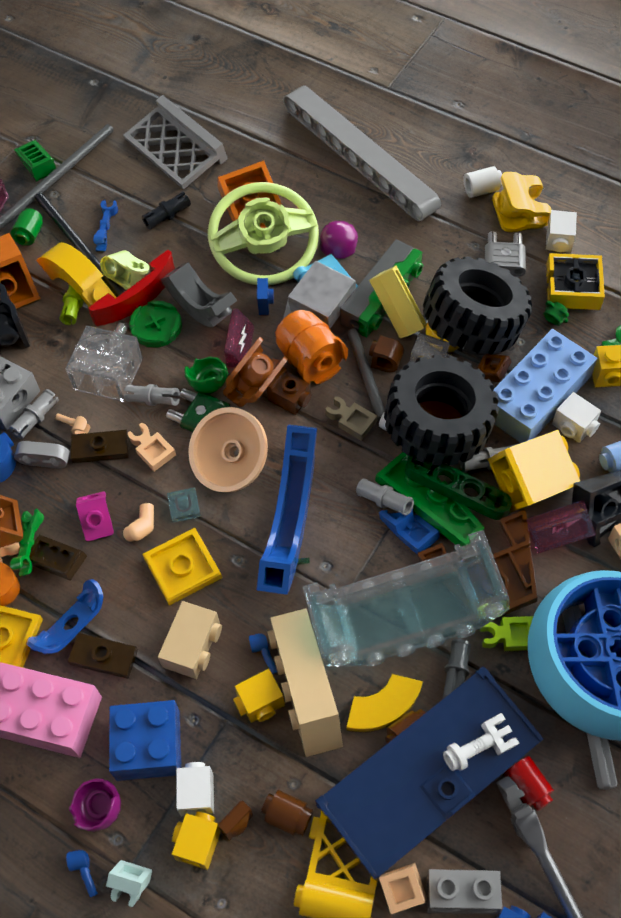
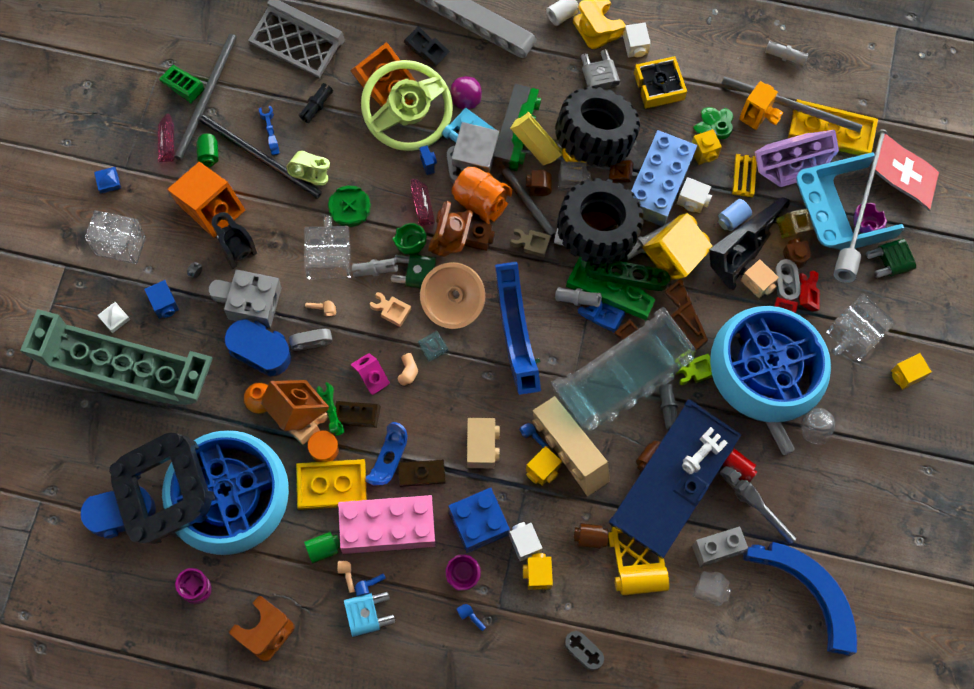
camera: 25 degrees left, 10 degrees up
(33, 414) = (288, 309): light grey pin -> none
(72, 303) = (275, 204): lime pin -> none
(77, 270) = (267, 178): yellow arch -> none
(99, 446) = (350, 319): dark brown plate -> none
(112, 309) = (311, 204): red slope -> none
(128, 879) = (505, 610): light aqua tile -> none
(182, 566) = (450, 392): yellow tile -> none
(196, 297) = (377, 177): dark grey arch -> none
(236, 820) = (560, 552): reddish brown tile -> none
(312, 184) = (426, 47): none -> black slope
(384, 707) = (629, 446): yellow tile -> none
(403, 888) = (683, 556): light nougat brick -> none
(556, 313) = (653, 113): green plate -> none
(560, 527) = (707, 283): clear pink slope -> none

